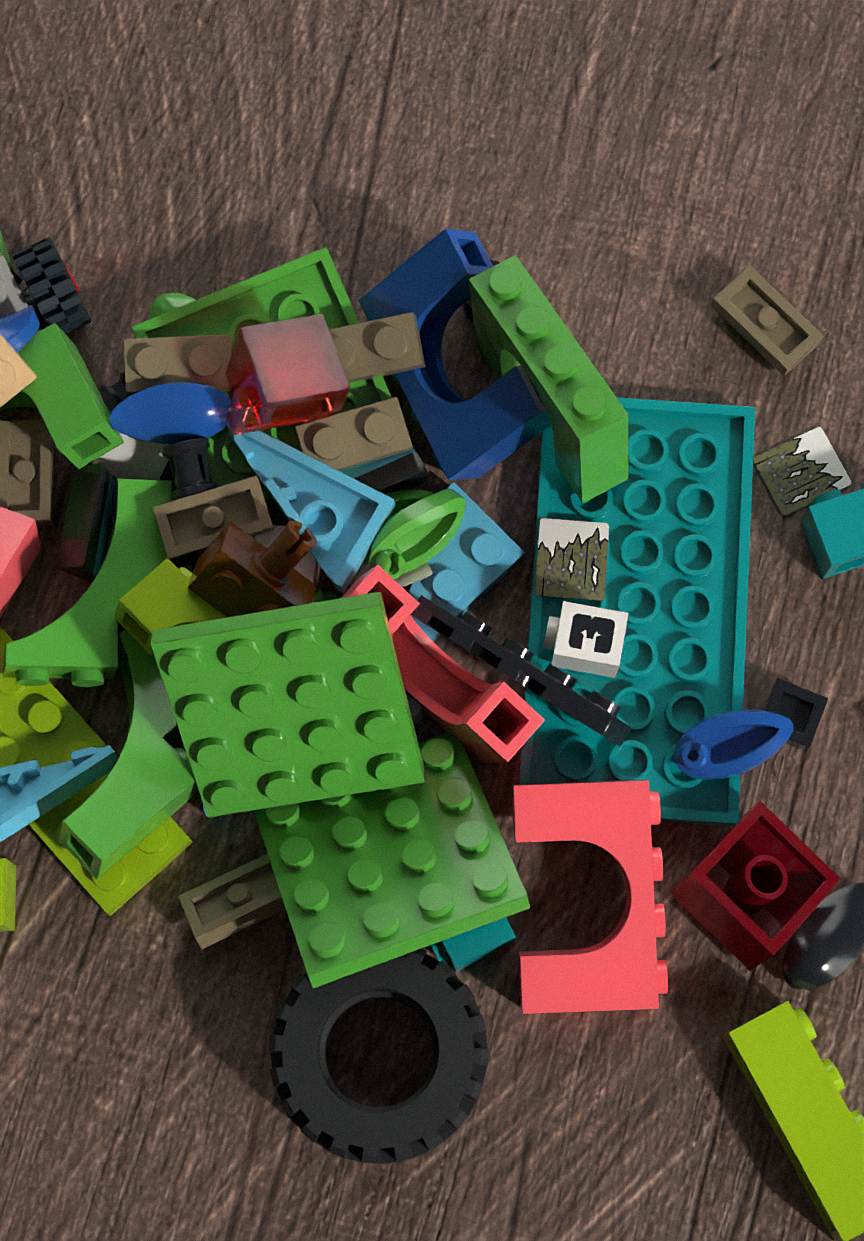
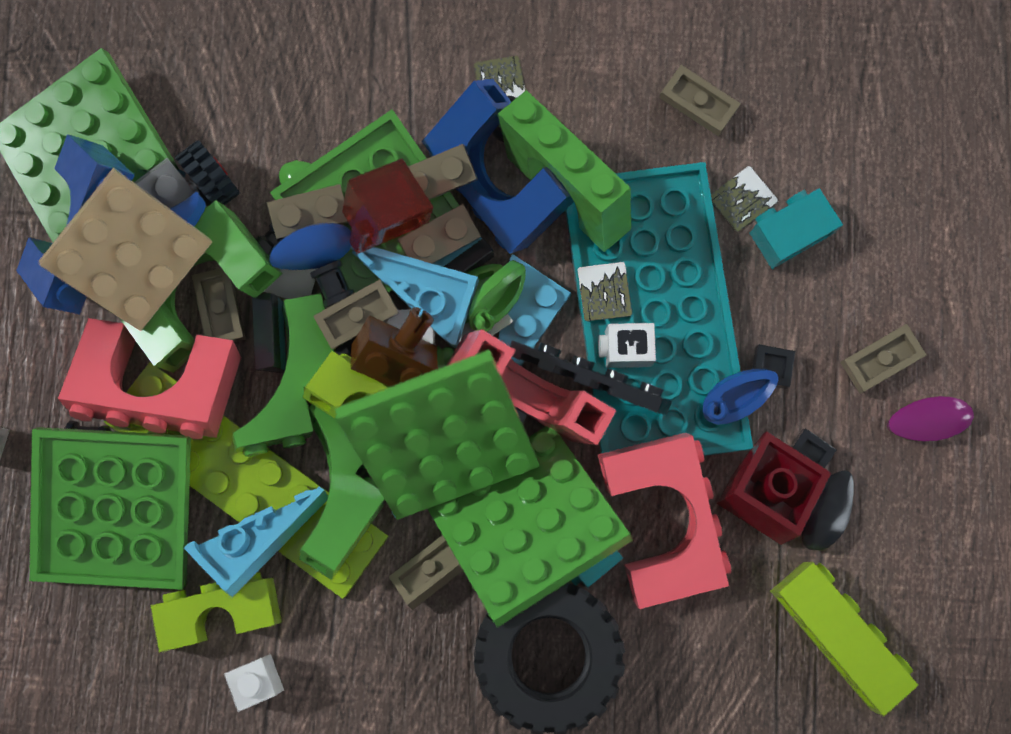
camera: 15 degrees left, 5 degrees up
(497, 230) = (505, 73): none -> sticker
(827, 842) = (813, 447): none -> black plate

